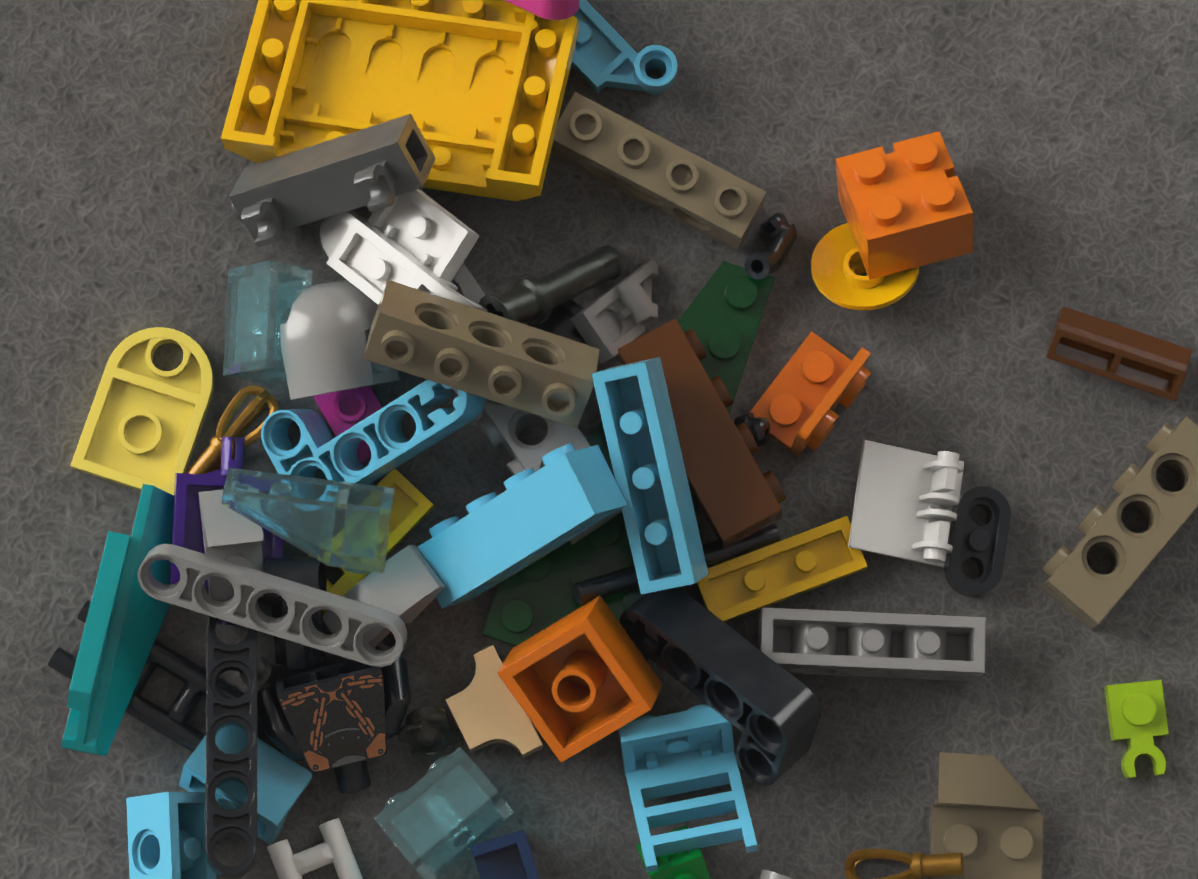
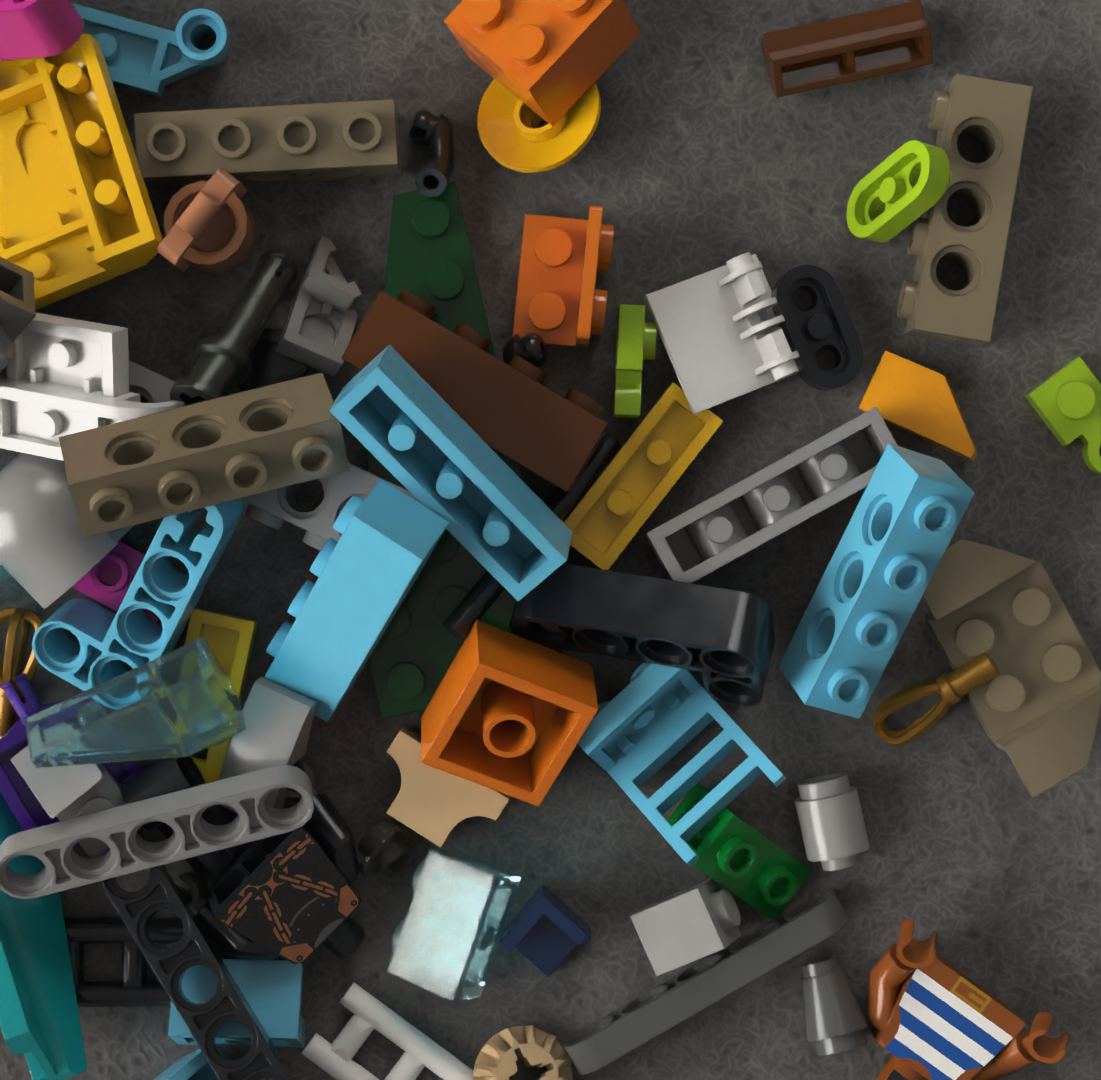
camera: 25 degrees left, 10 degrees up
(578, 202) = (209, 226): none -> nougat piece
(835, 472) = (633, 344): none -> lime plate
(908, 744) = (875, 580): none -> medium azure brick
(1021, 643) = (918, 403): none -> light orange slope
(1094, 476) = (898, 191): none -> lime plate

